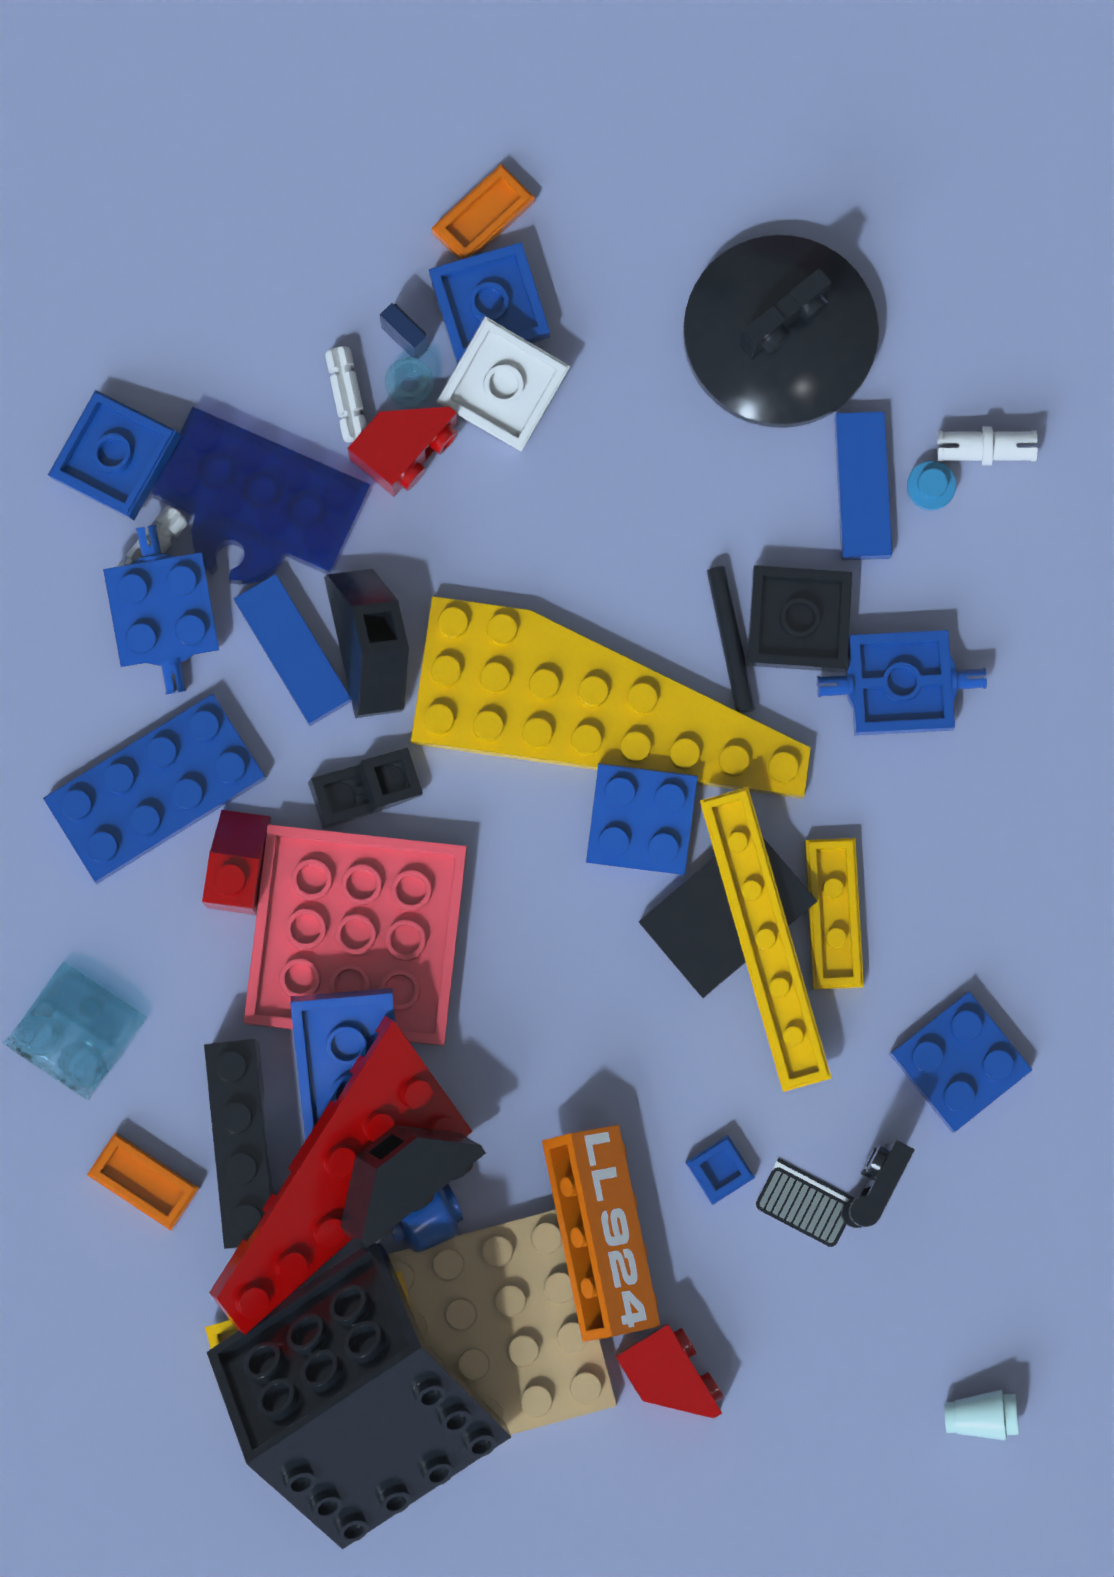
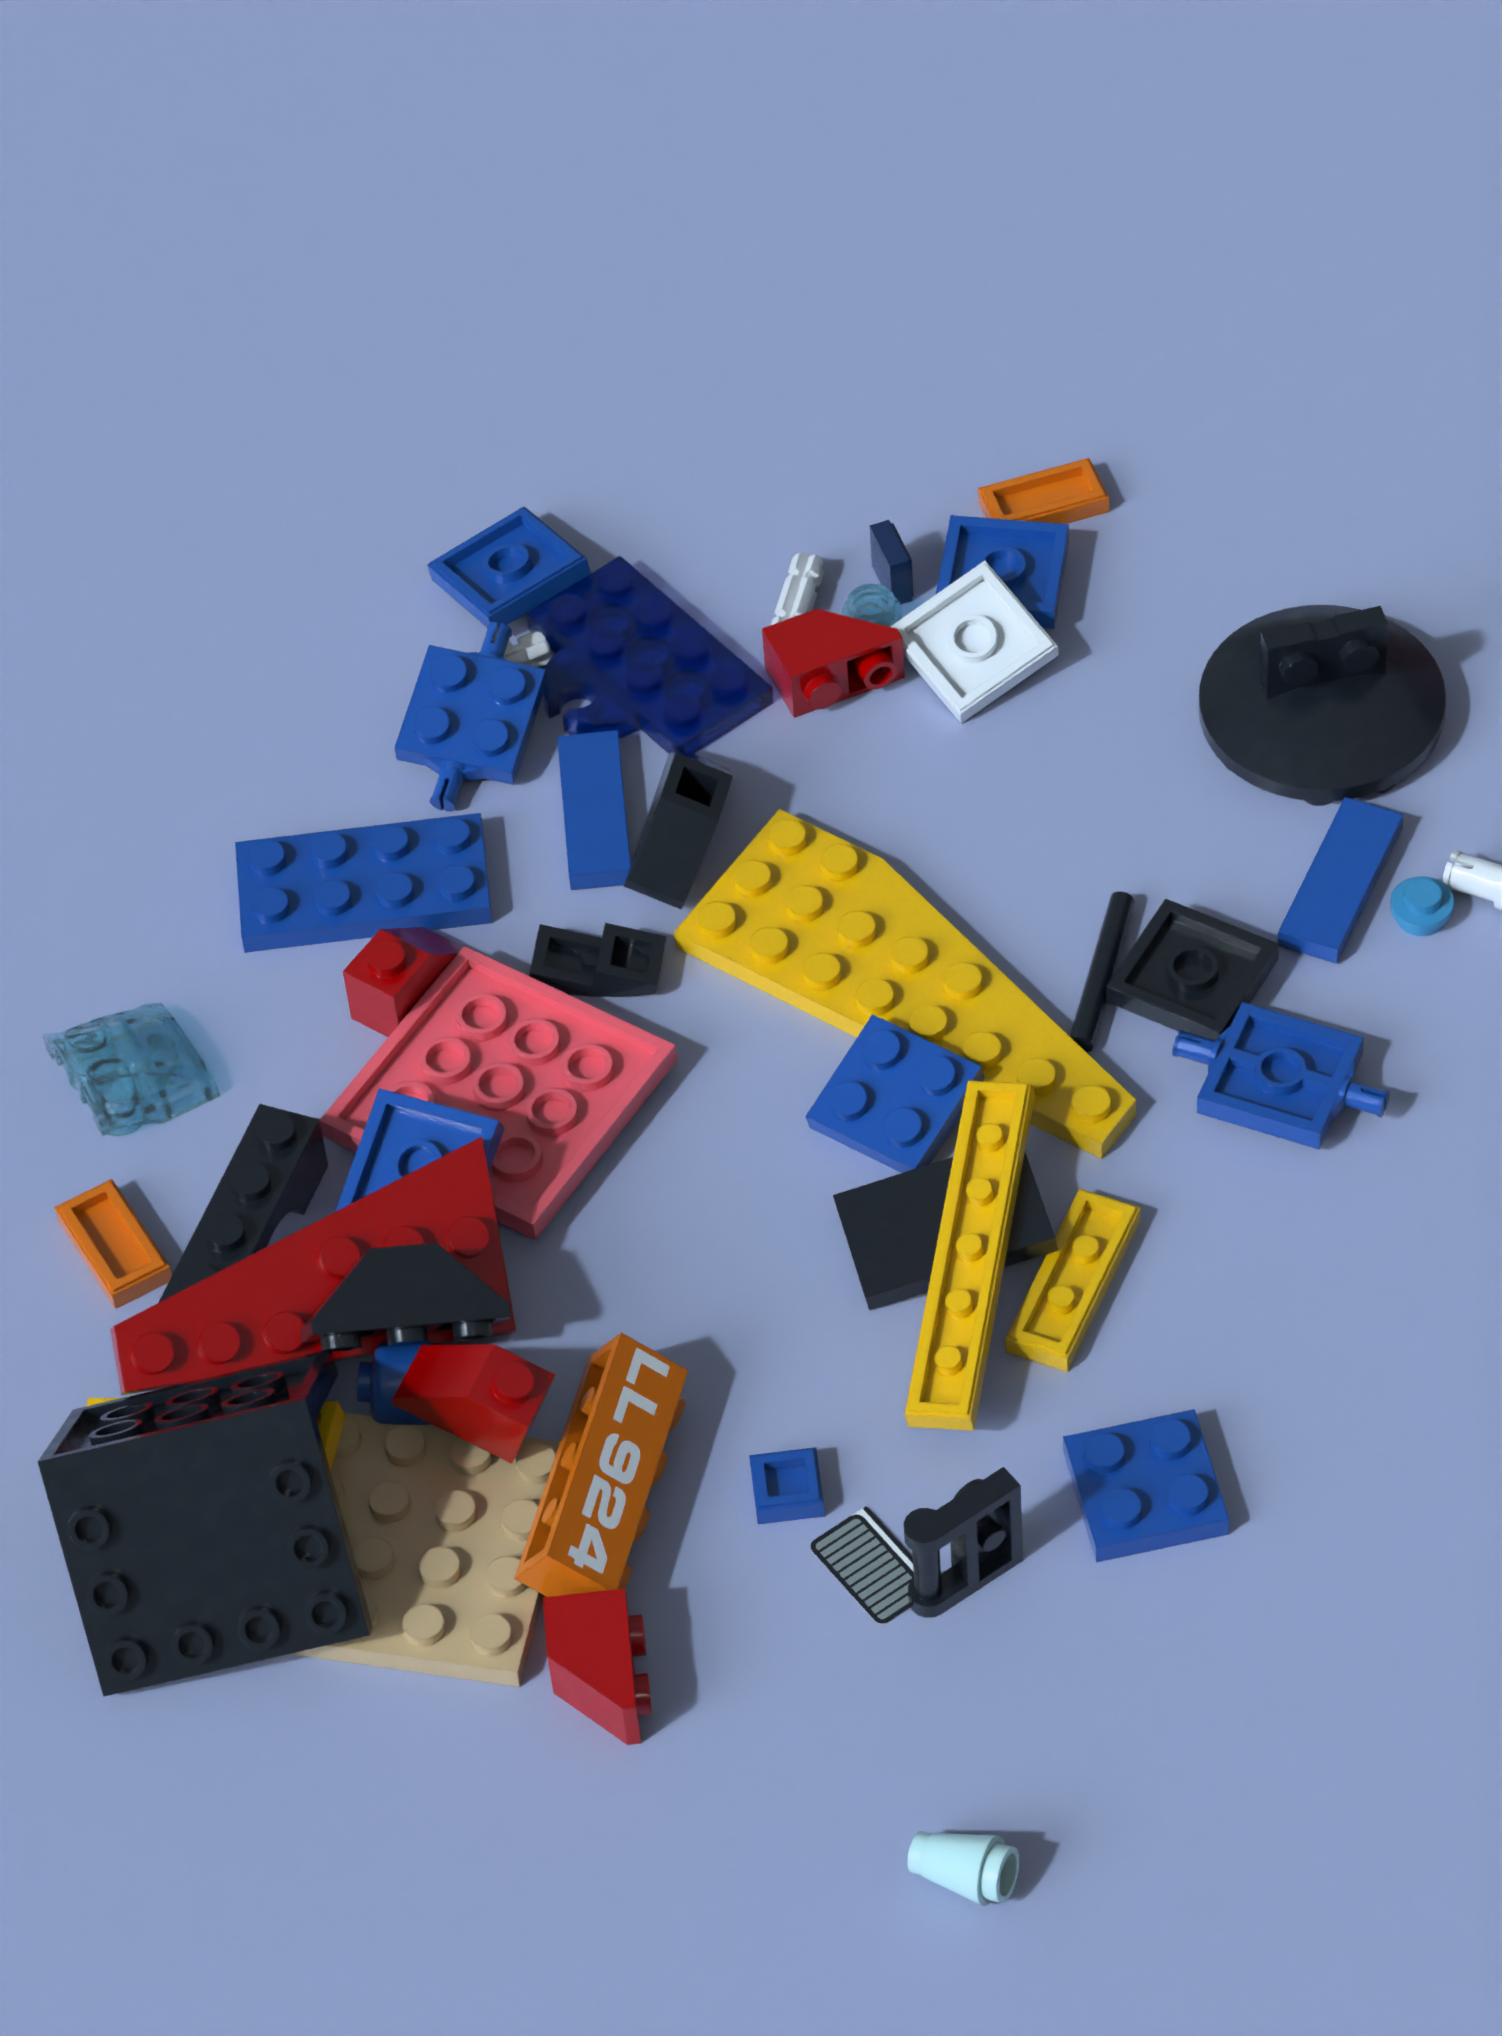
camera: 35 degrees right, 30 degrees down
(491, 1225) = (476, 1394): none -> red slope

